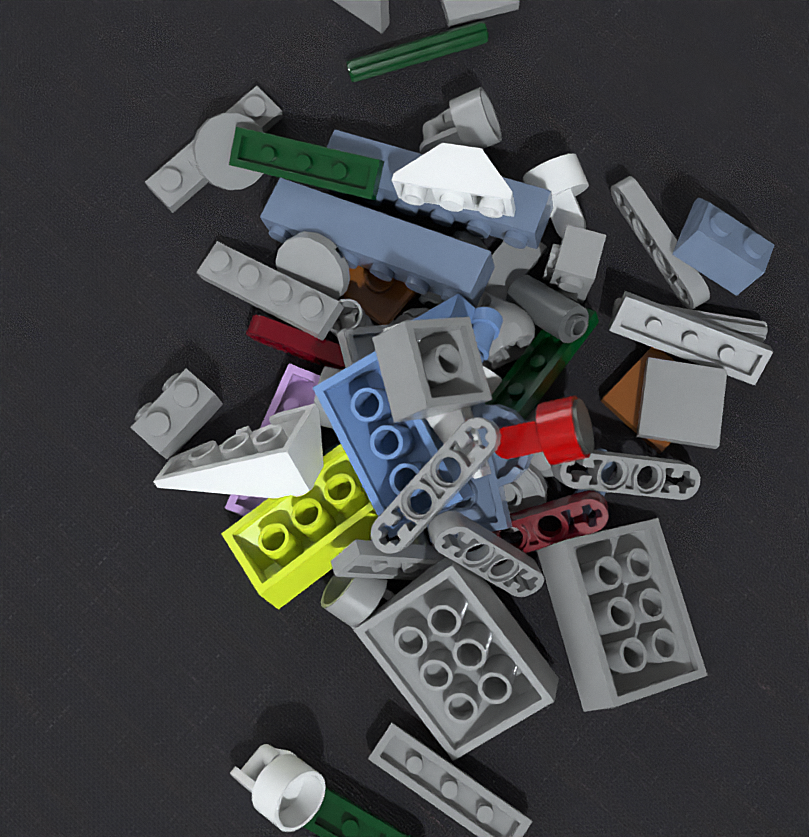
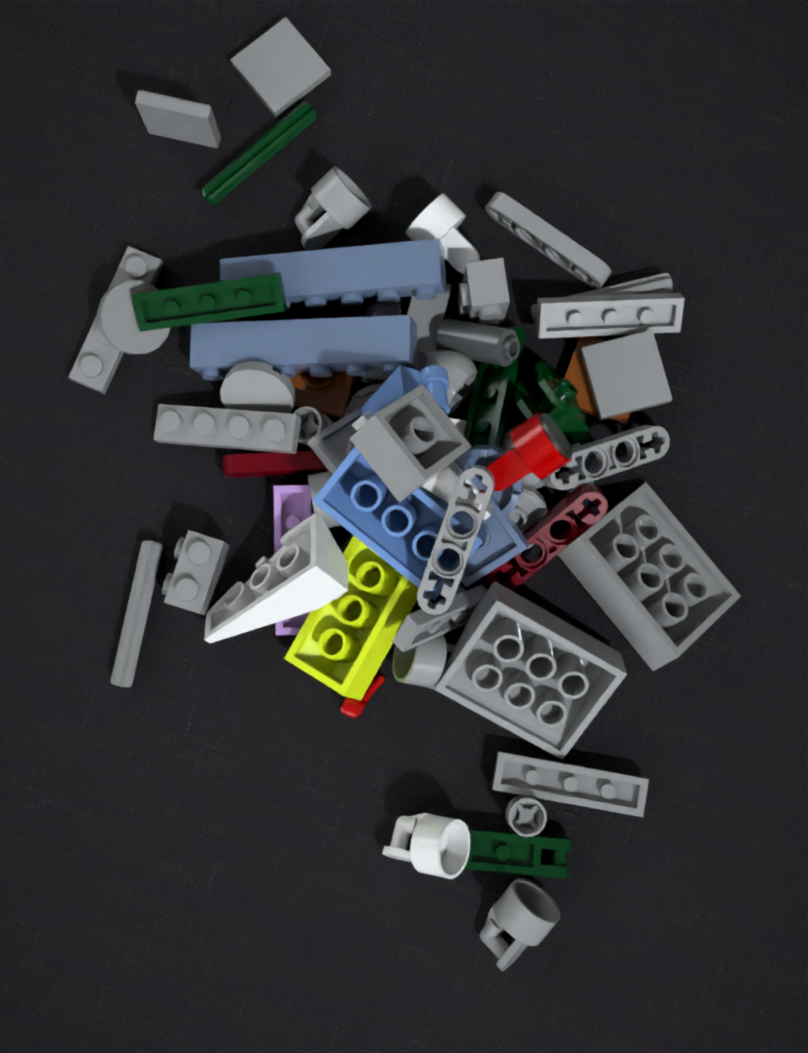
camera: 30 degrees left, 5 degrees up
(103, 430) = (136, 613): none -> light grey axle
(270, 614) = (354, 707): none -> red hand
(393, 807) = (531, 815): none -> light grey wheel
(455, 180) = (352, 264): white slope -> none
(481, 561) = (549, 581): light grey beam -> none
(602, 396) = (554, 397): none -> dark green hinge
(722, 247) = (604, 223): sand blue slope -> none

